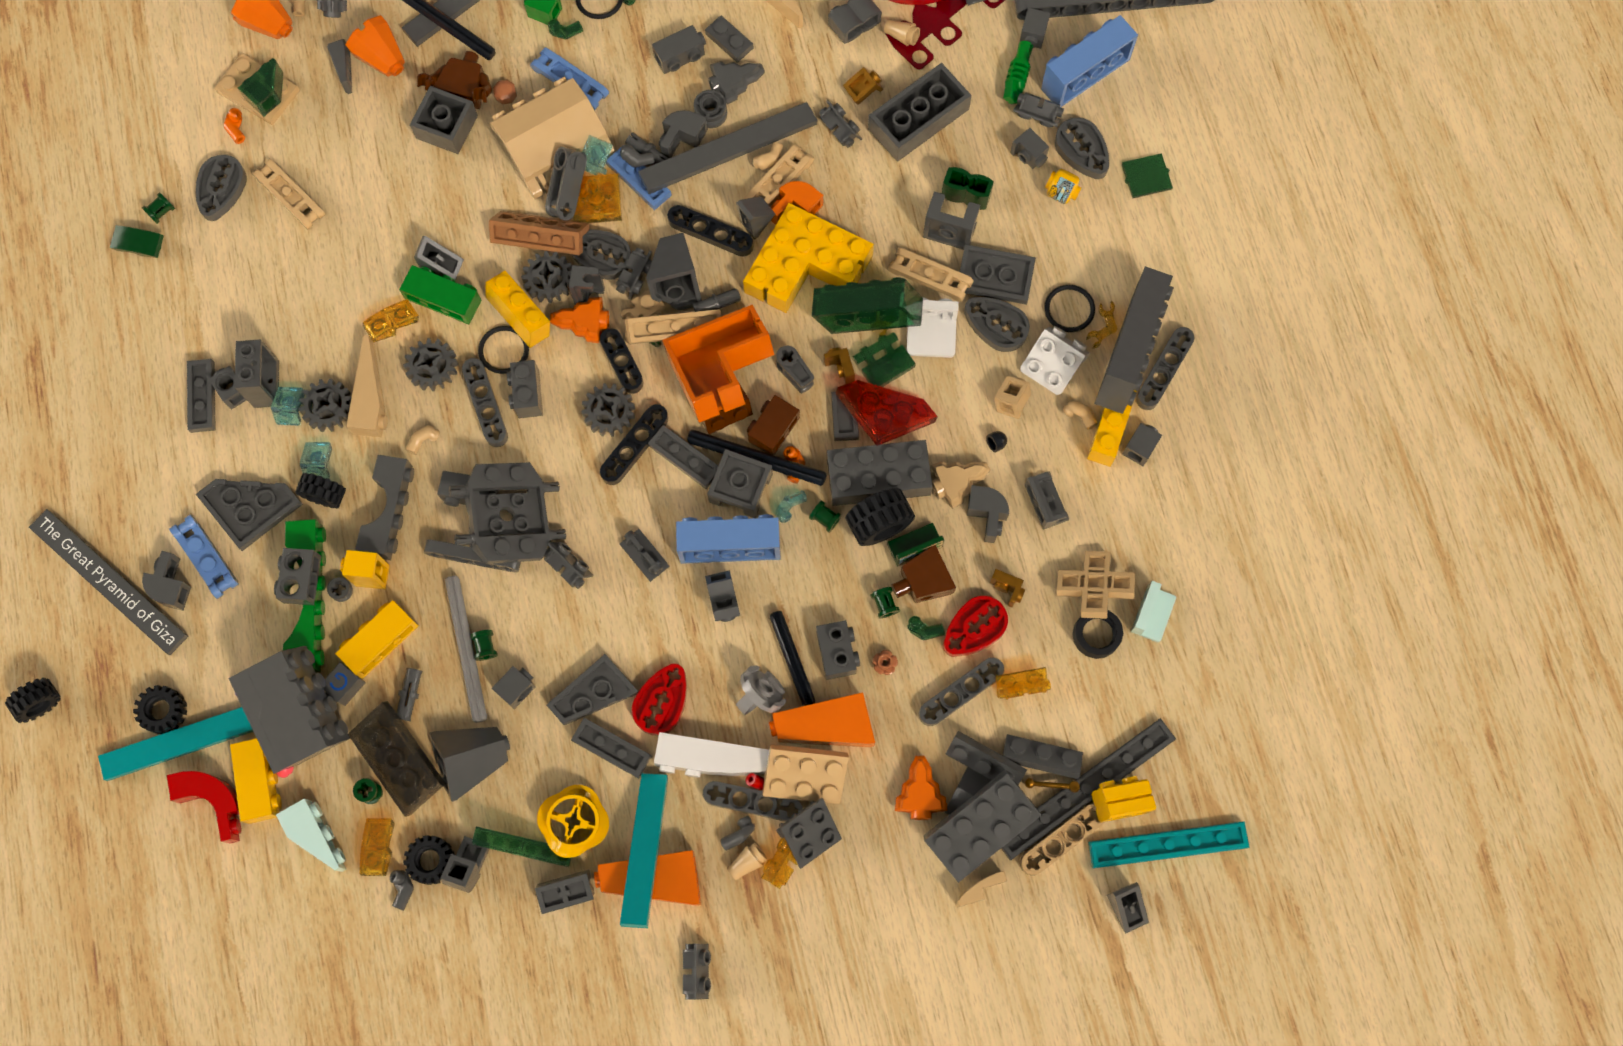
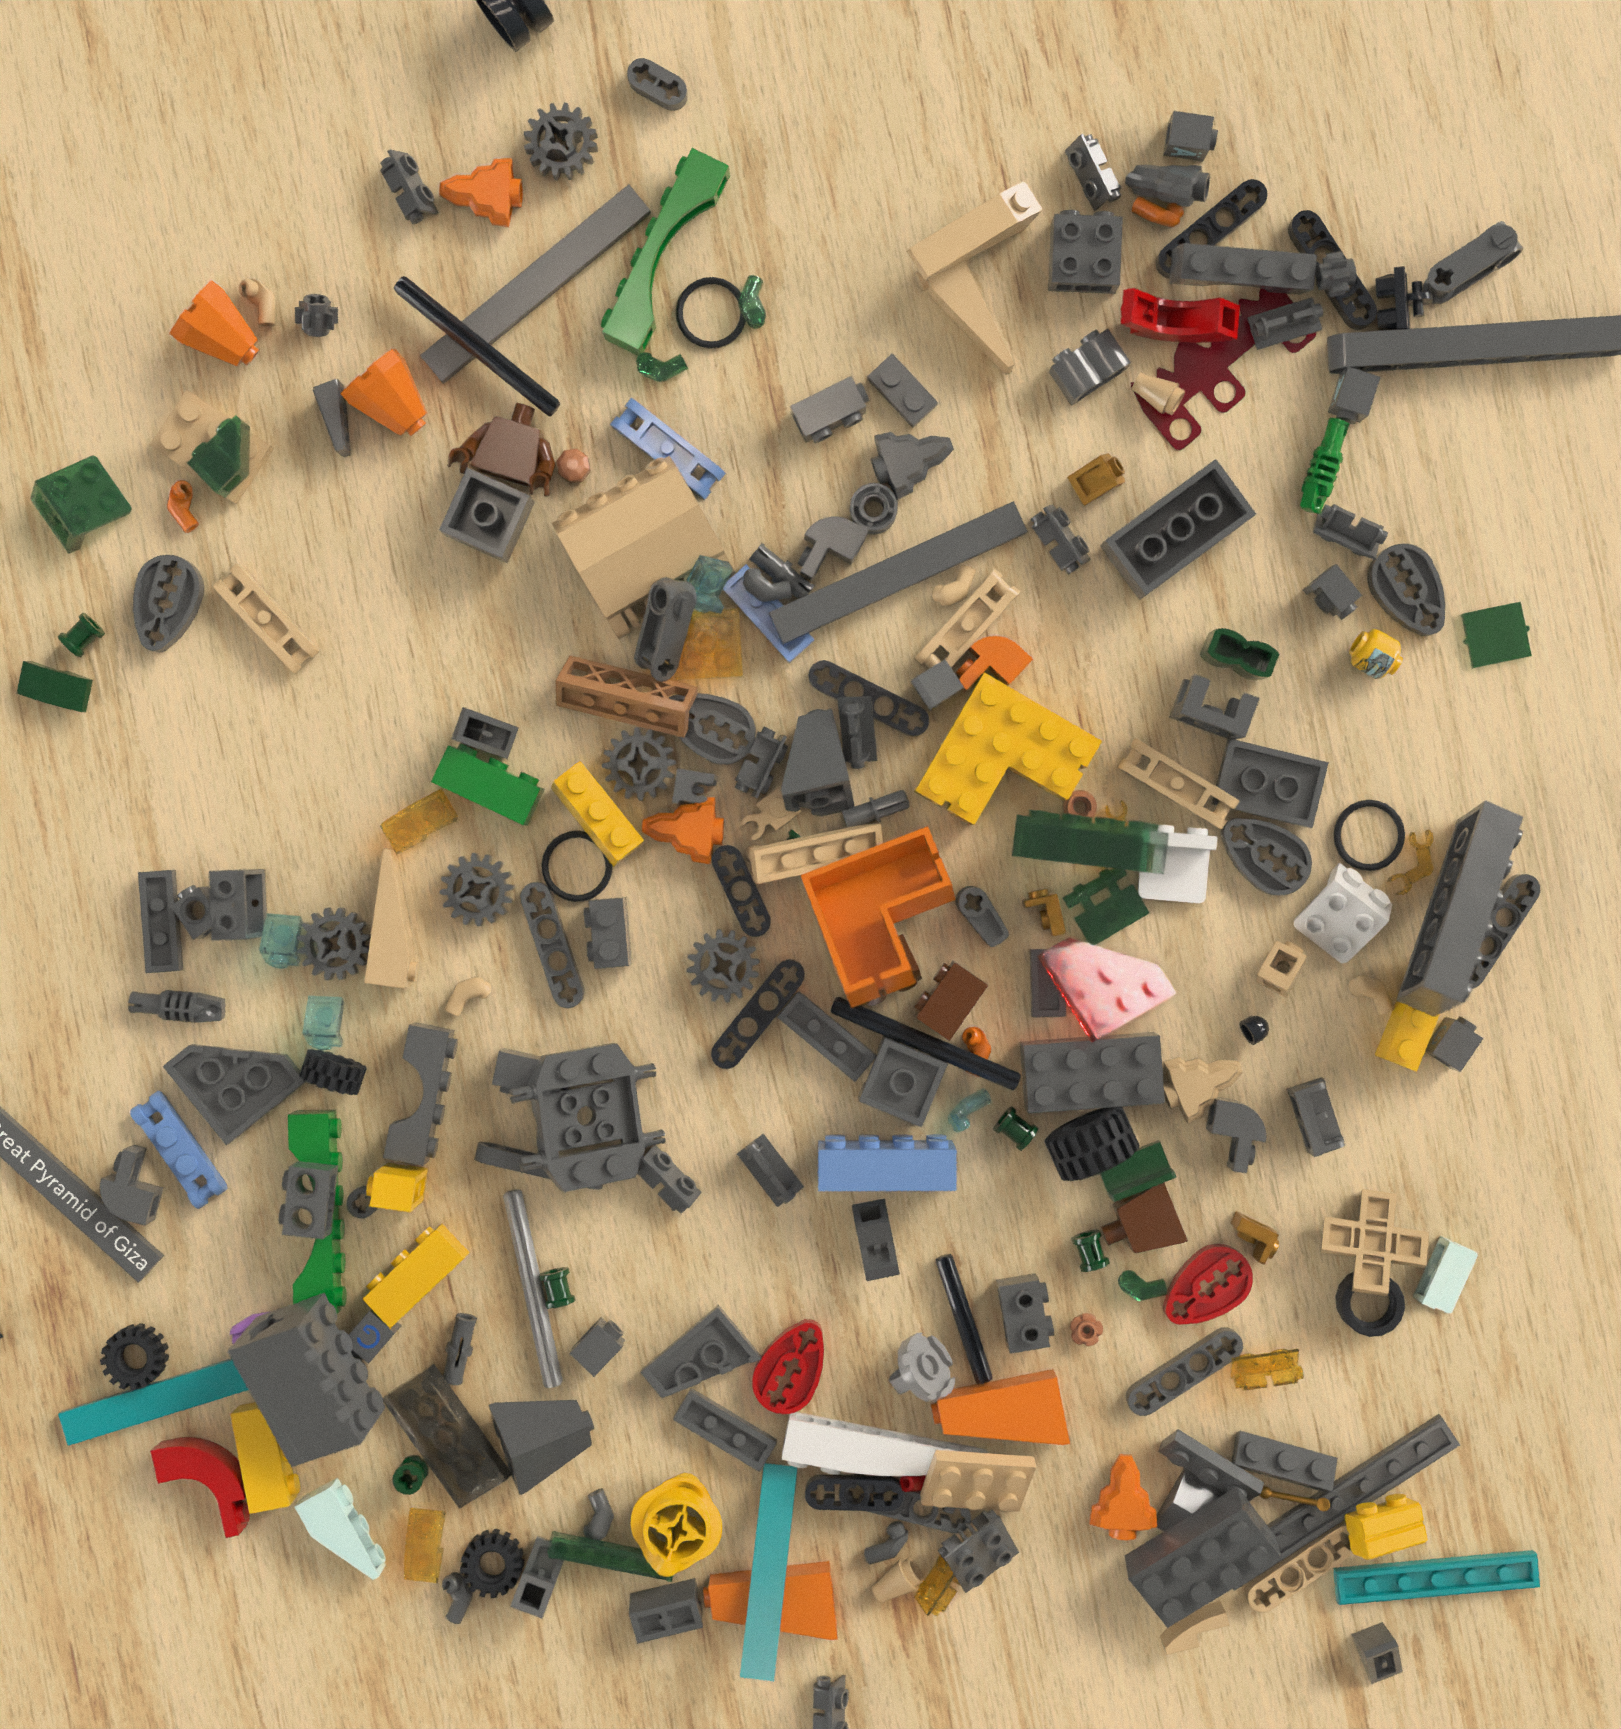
camera: 10 degrees right, 15 degrees up
(160, 122) = (78, 501): none -> clear green bracket
(210, 453) = (179, 1006): none -> dark grey hinge
(516, 821) = (603, 1516): none -> dark grey arm
(702, 248) = (857, 730): none -> dark grey hinge
(730, 782) = (844, 1504): none -> black beam
(1089, 61) = (1435, 457): medium blue brick -> none

